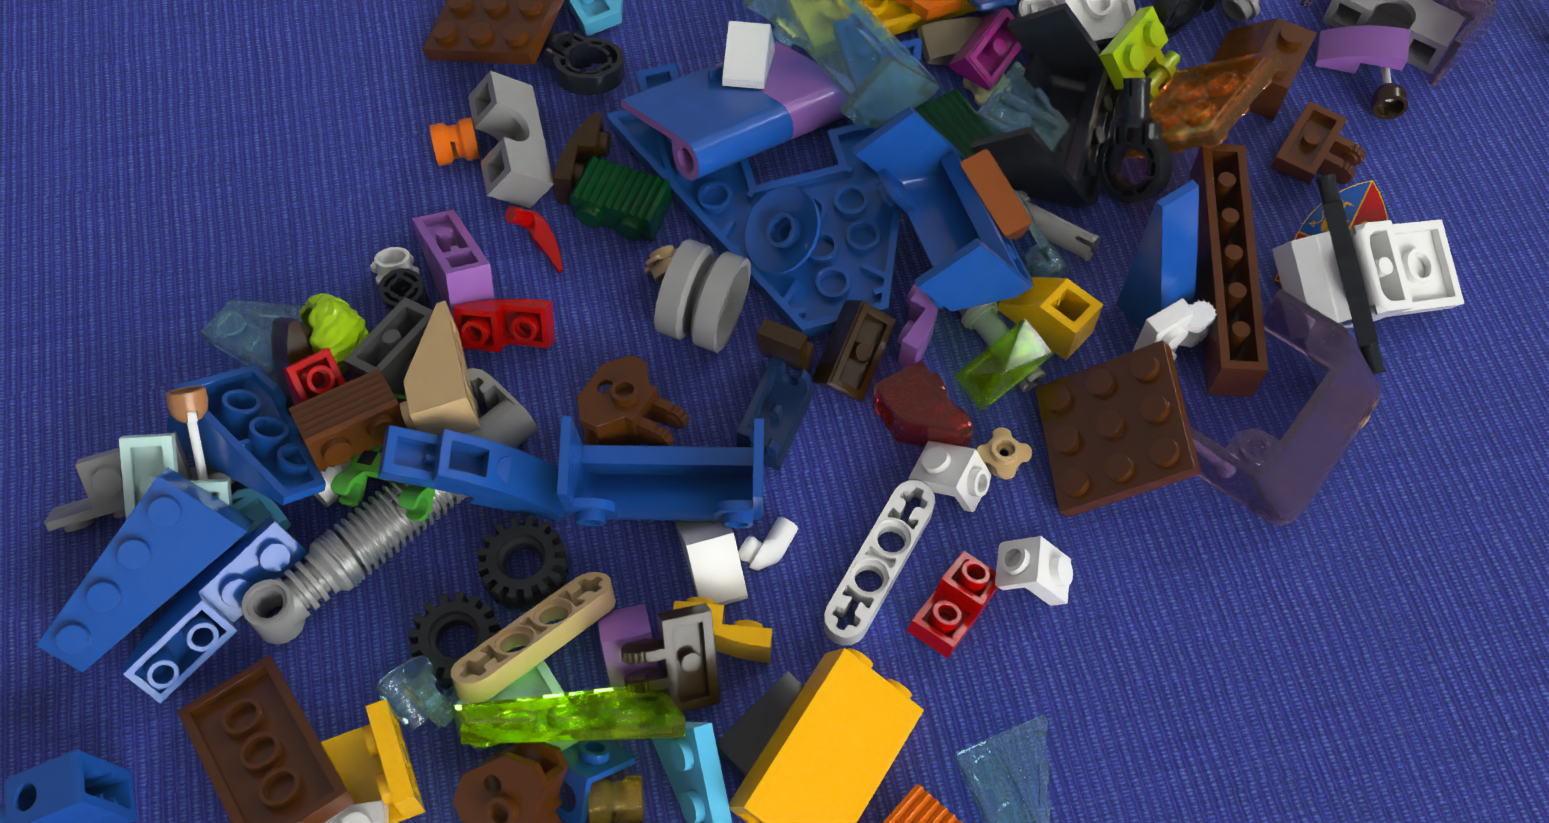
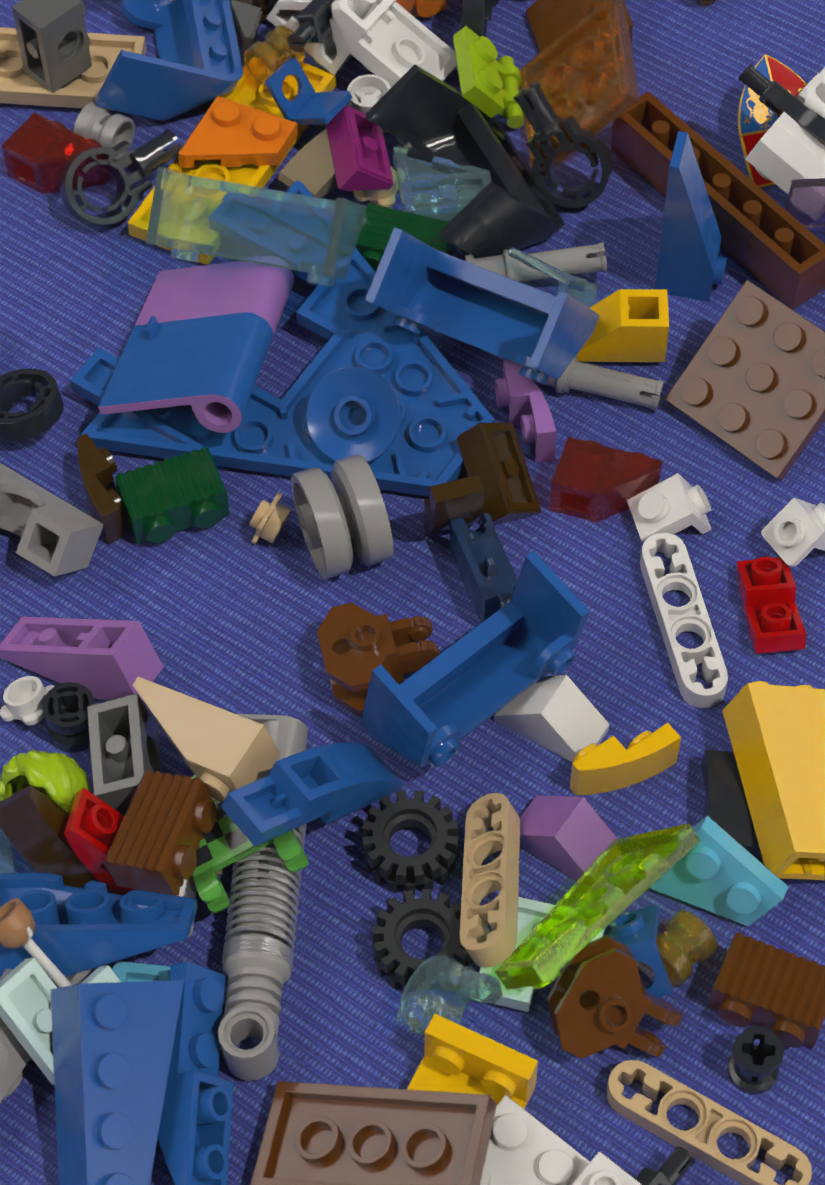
camera: 40 degrees left, 5 degrees down
(499, 322) = (193, 660): red slope -> none
(539, 232) = (128, 580): red bar -> none
(687, 659) = (624, 795): dark brown hinge -> none
(748, 54) = (168, 293): white slope -> none
(771, 551) = (591, 672): white arm -> none
(997, 194) = (502, 259): dark orange slope -> none
(1003, 364) = (627, 396): clear neon green slope -> none
(1004, 466) = (702, 457): tan plate -> none
(1178, 325) = (735, 269): white hinge -> none
(1309, 147) = (689, 62): reddish brown hinge -> none

